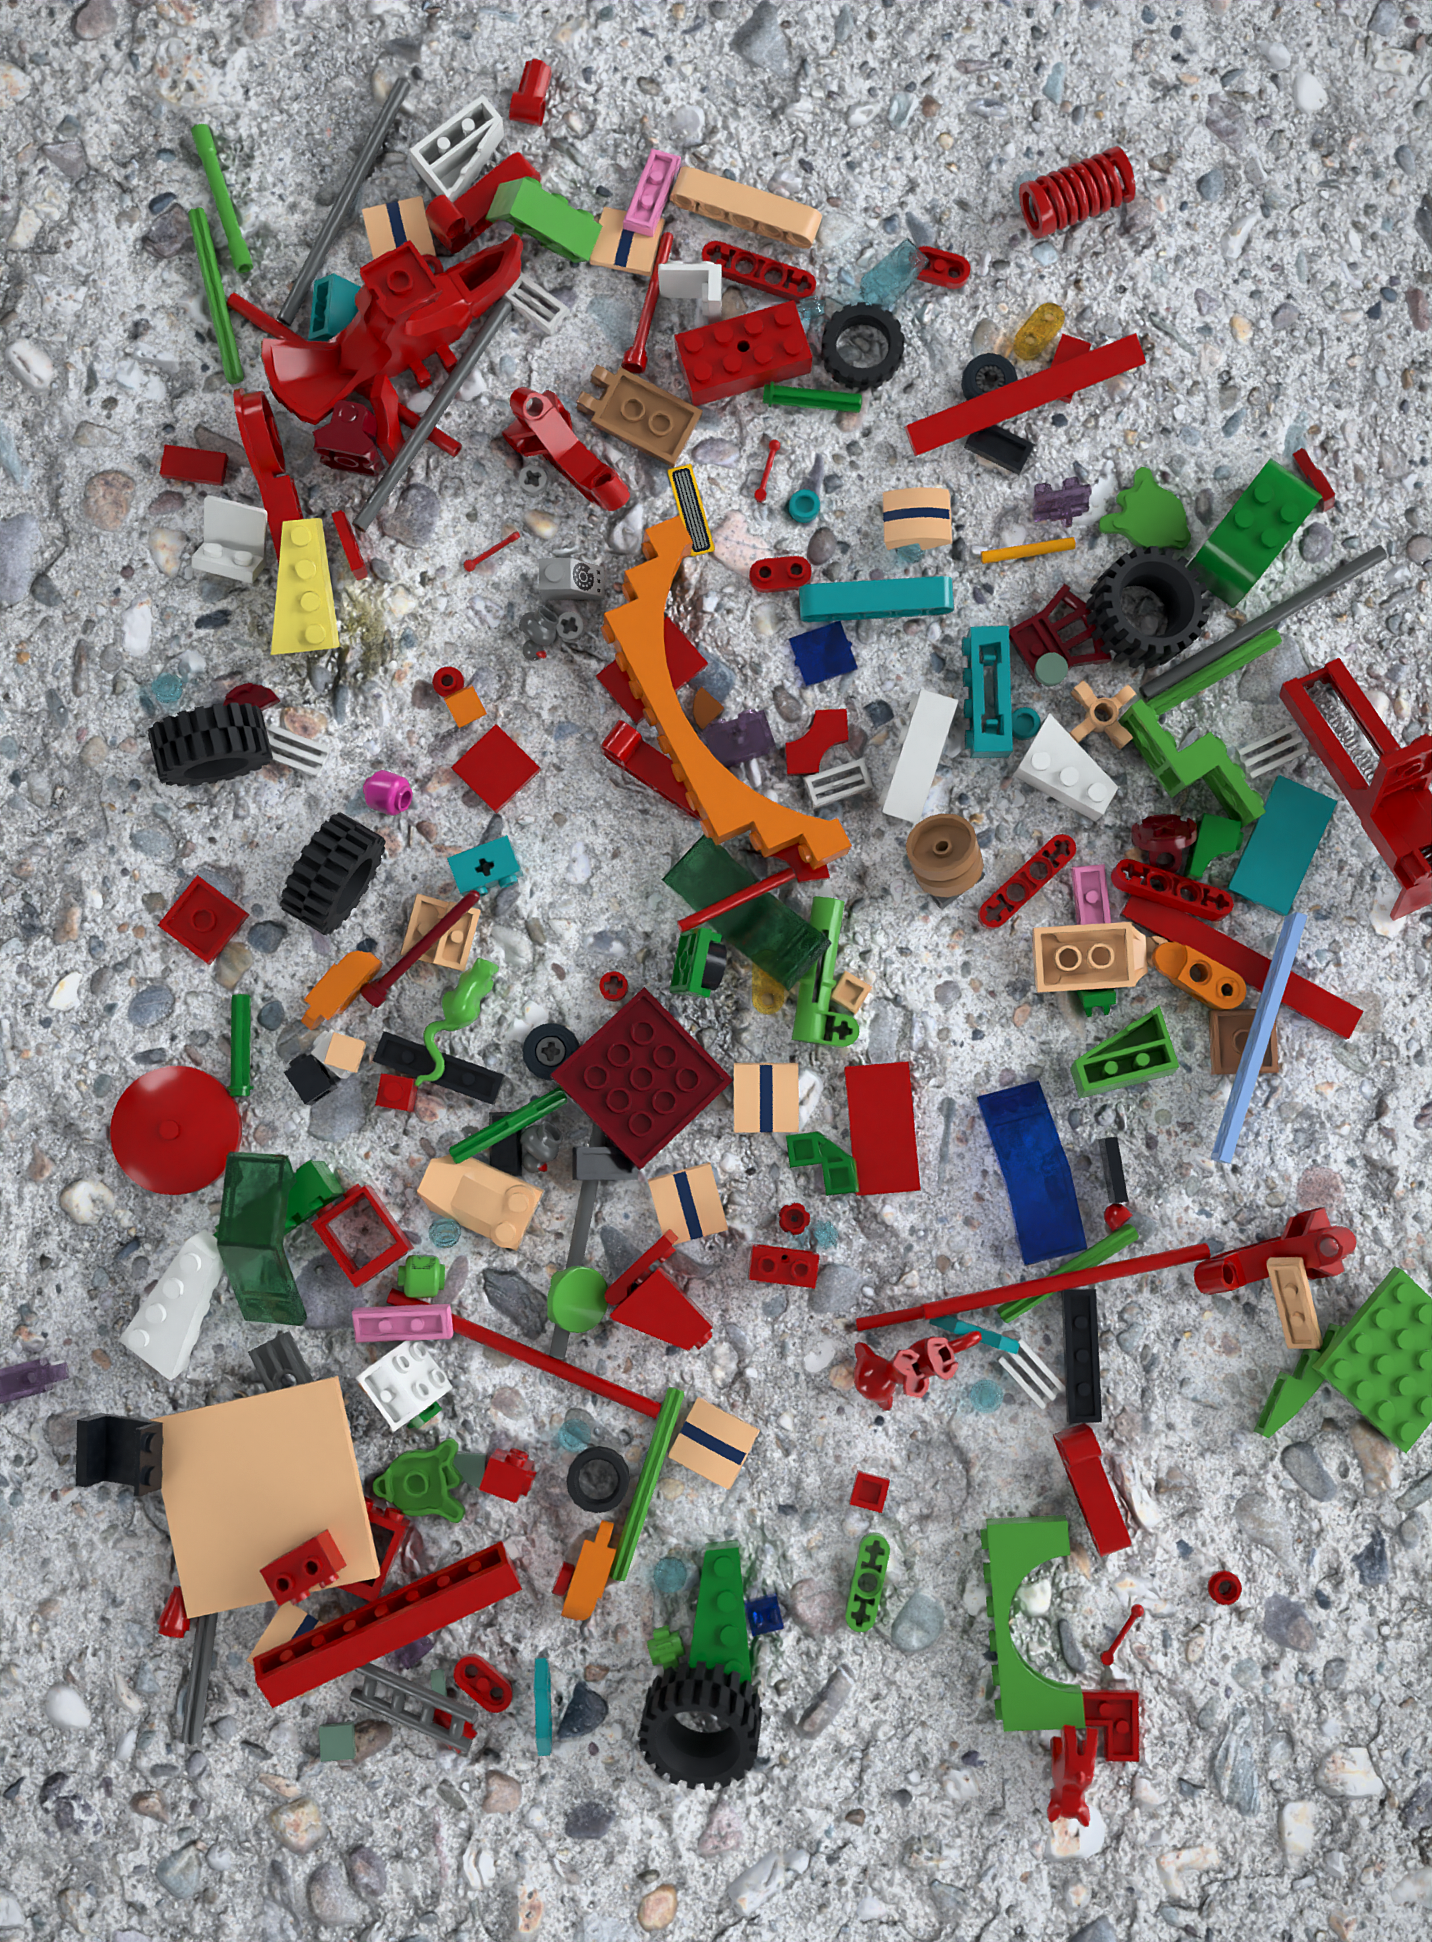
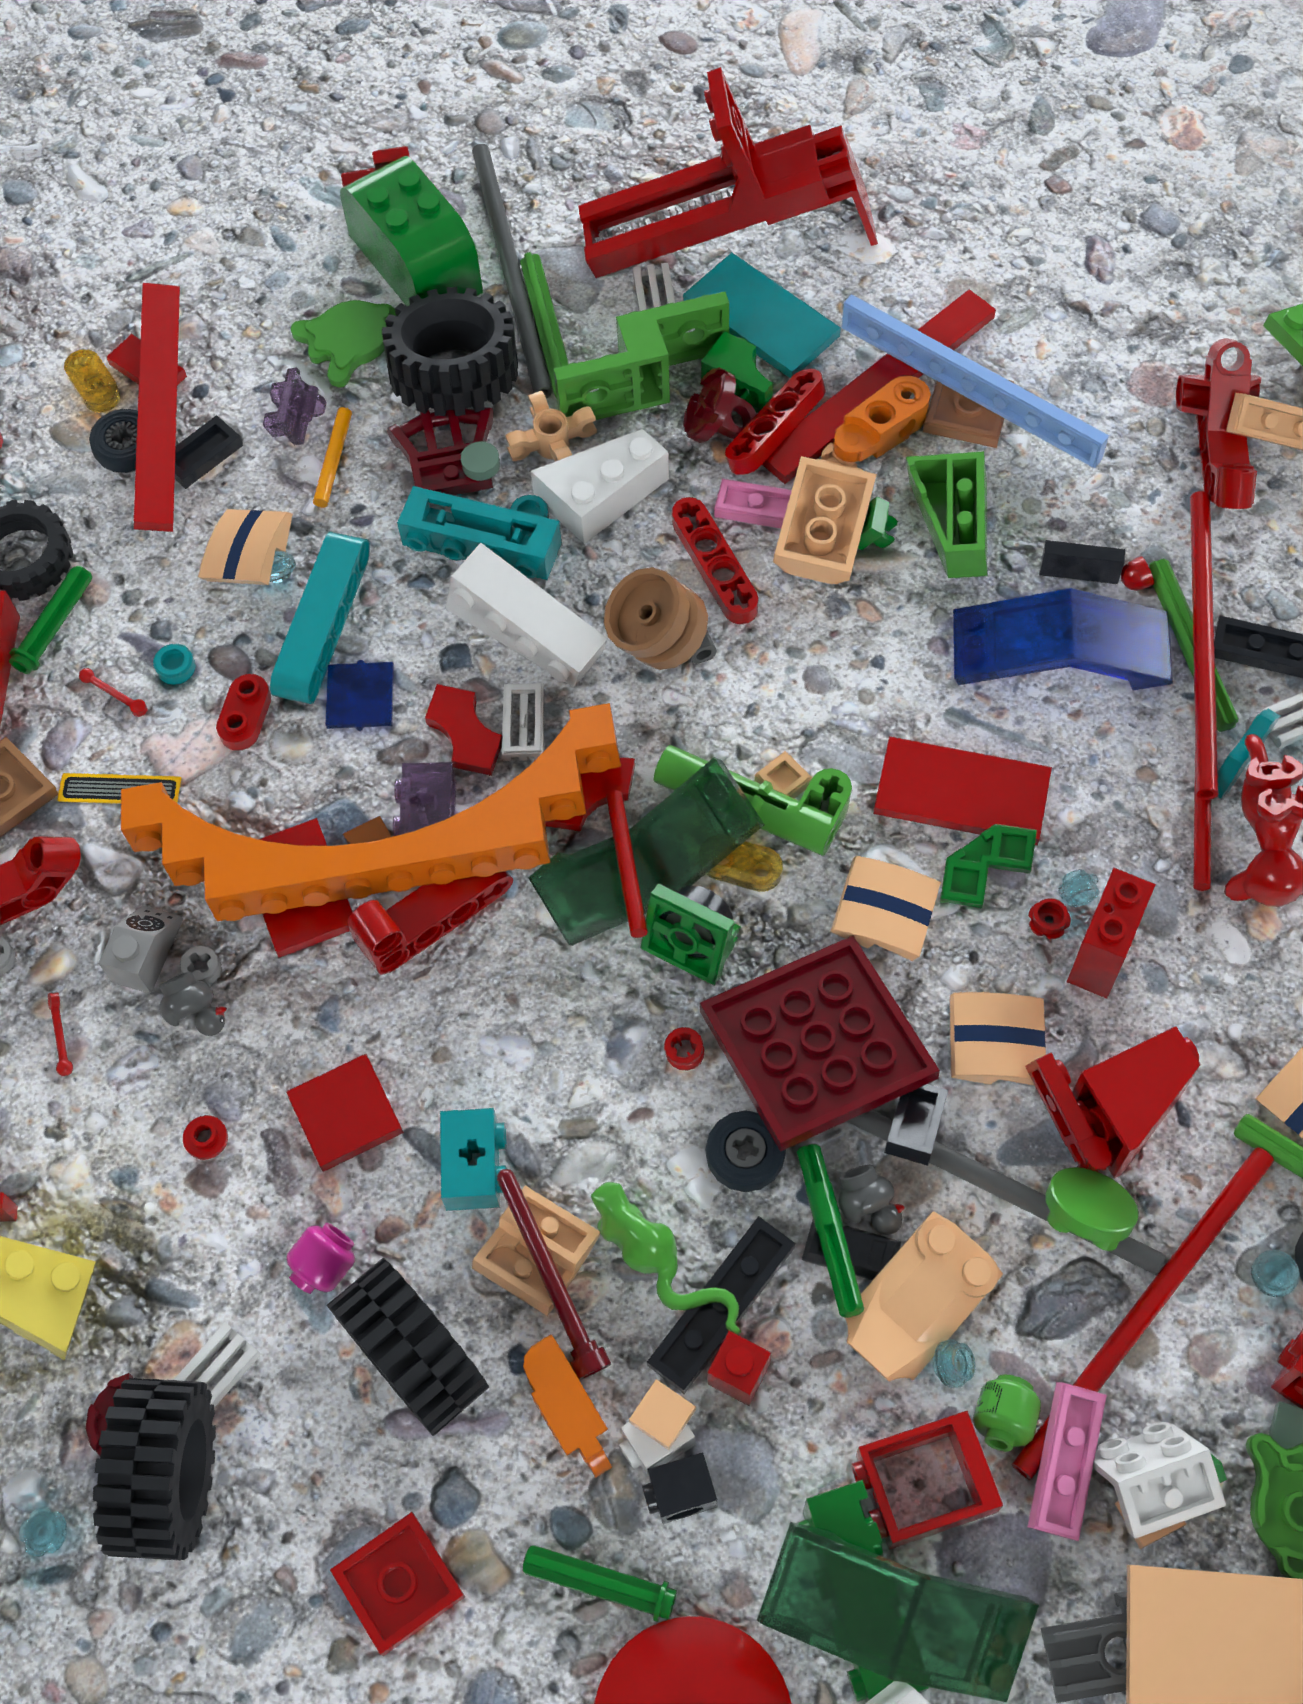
camera: 70 degrees left, 20 degrees down
(465, 706) = (246, 1123): orange tile -> none

